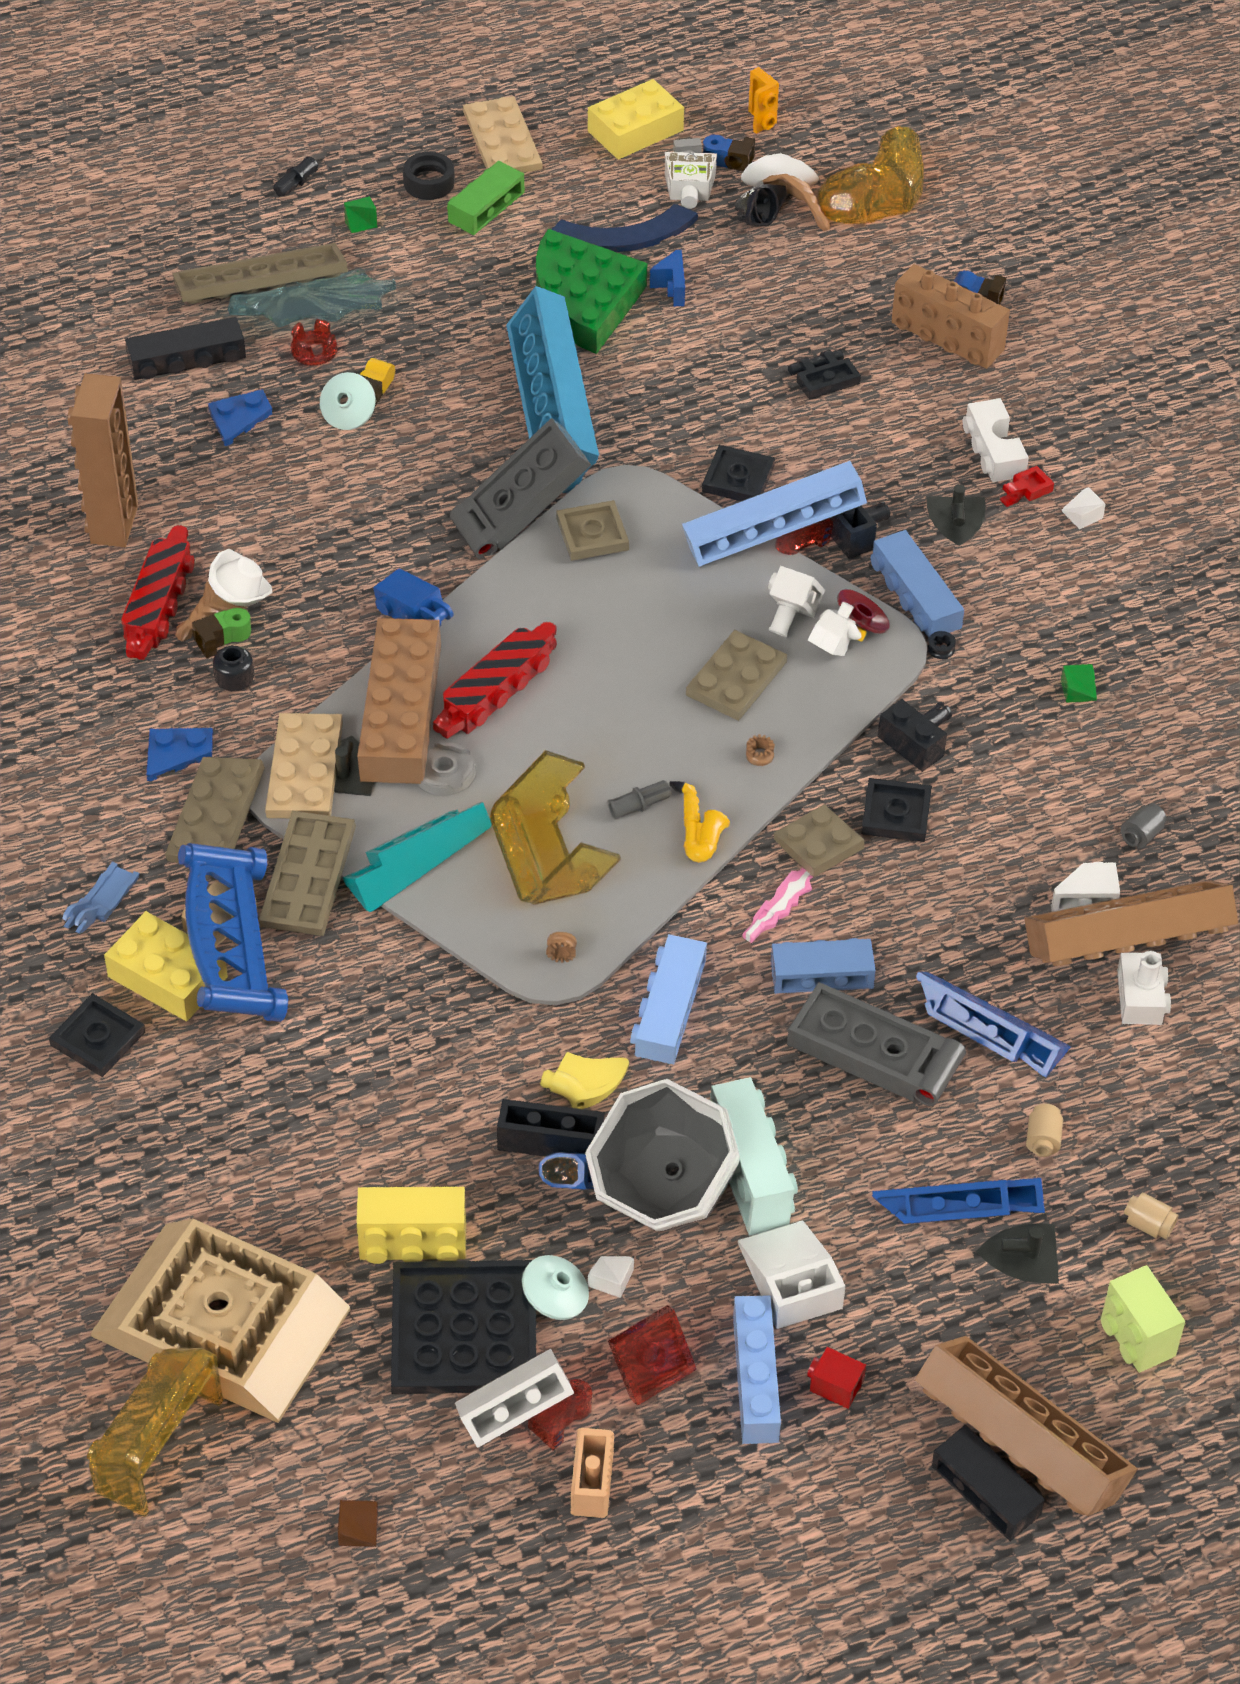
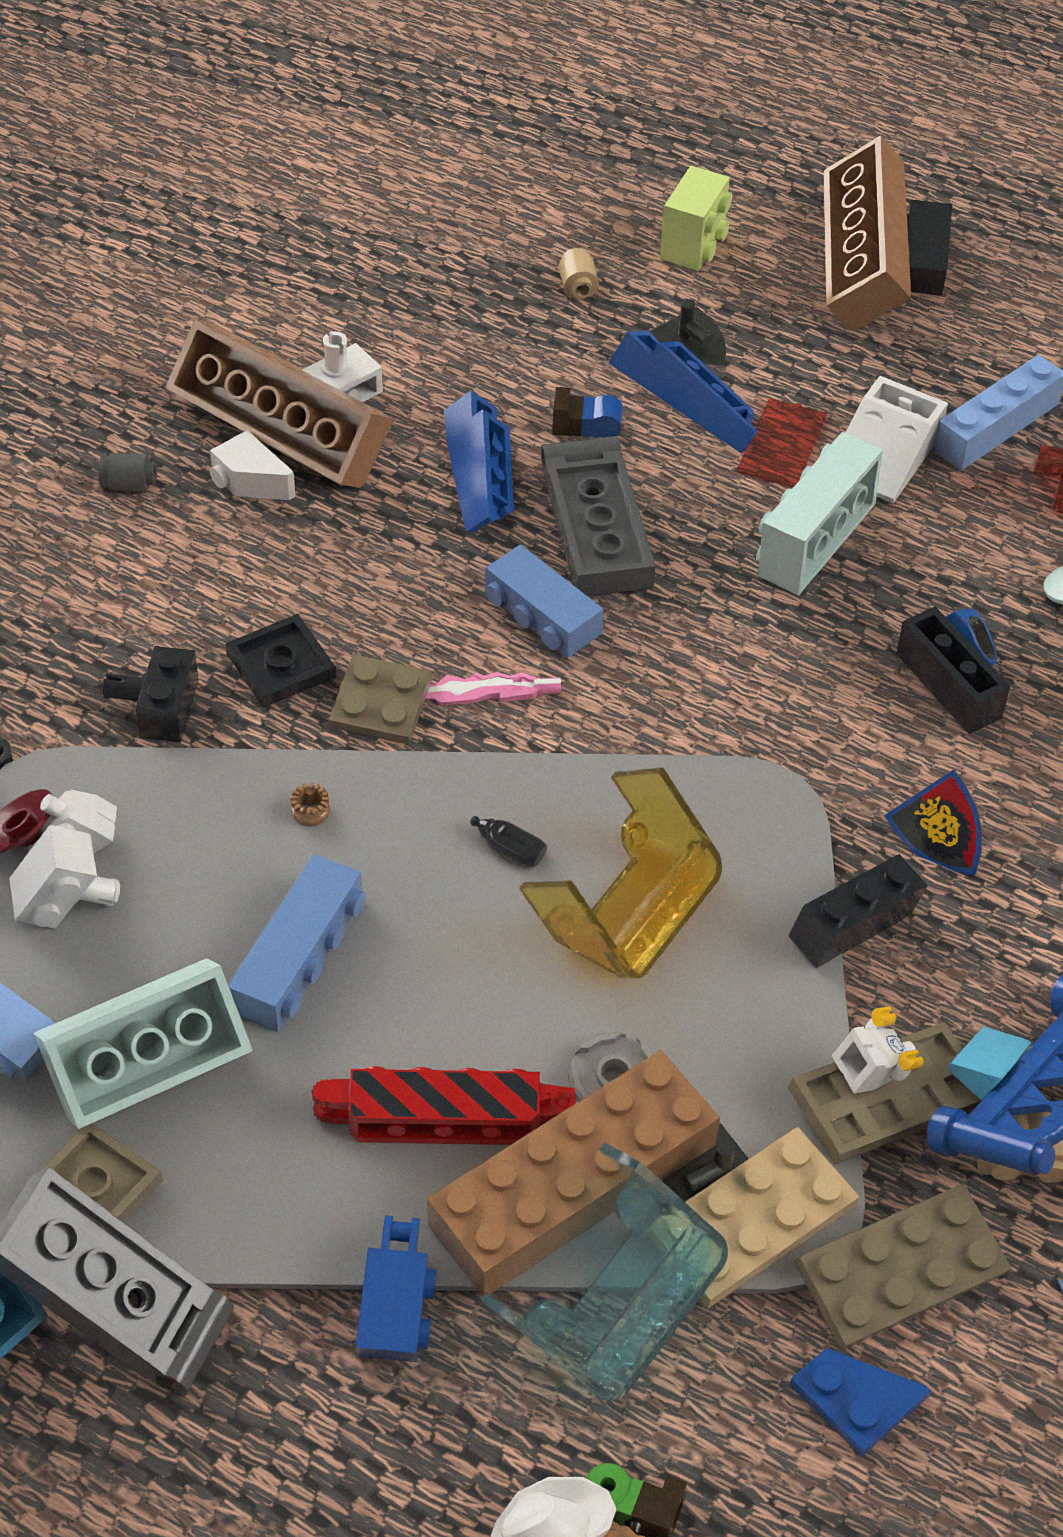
camera: 130 degrees left, 0 degrees up
(233, 668) = (690, 1418): black head -> none
(278, 927) = (987, 1060): none -> medium azure slope
(318, 668) = (636, 1296): none -> clear light blue windscreen
(323, 856) = (875, 1054): none -> white piece
(414, 854) = (756, 1010): teal wedge -> none
(427, 938) = (857, 910): none -> black brick
(451, 1043) = (941, 824): none -> shield
(558, 952) = (745, 795): medium nougat bush -> none
(585, 1079) = (855, 702): light yellow arm -> none
(611, 1274) = (1024, 556): white slope -> none
(639, 799) = (485, 858): dark grey axle -> none
(643, 822) = (511, 840): none -> black piece
(647, 571) = (143, 1042): none -> light aqua brick
(648, 1136) = (912, 535): dark grey rock -> none
(662, 682) = (296, 942): none -> medium blue brick
(670, 999) = (703, 686): light blue brick -> none
(700, 837) = (482, 777): yellow piece -> none
(736, 675) = (210, 894): dark tan plate -> none
(836, 1377) = (945, 367): red brick -> none
(860, 1225) = (782, 442): none -> clear red piece
(986, 1111) = (586, 415): none -> leg
(1044, 1130) = (563, 369): tan brick -> none

